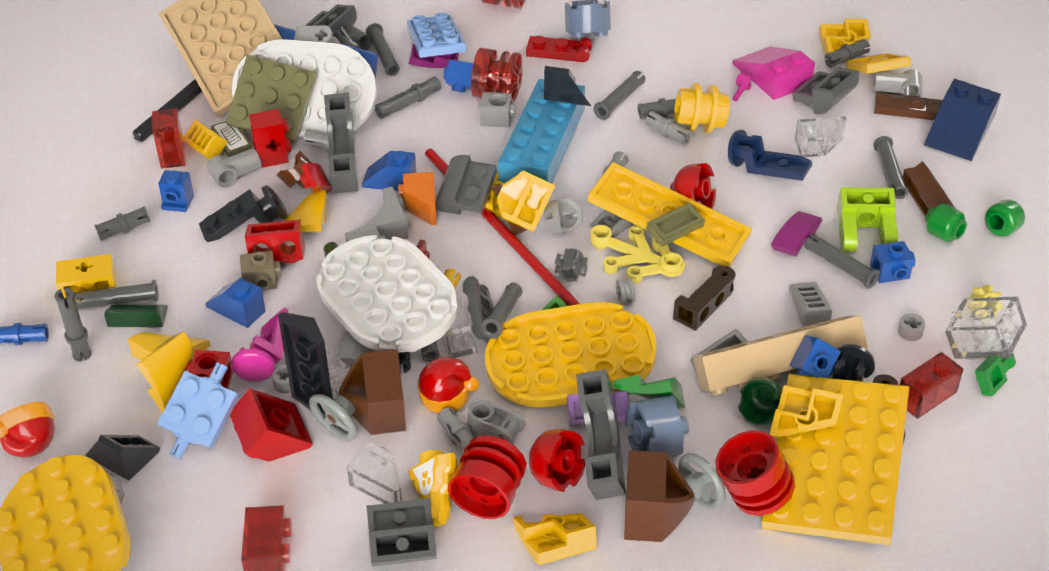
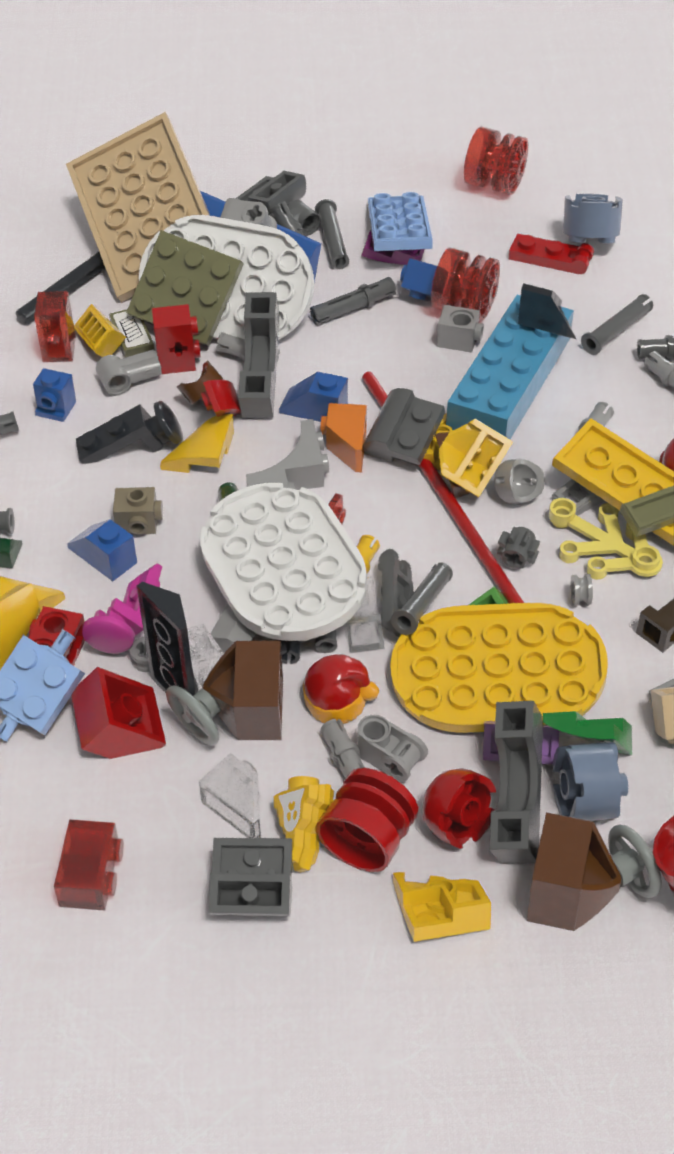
camera: 10 degrees right, 5 degrees up
(273, 235) = (160, 469): red brick -> none

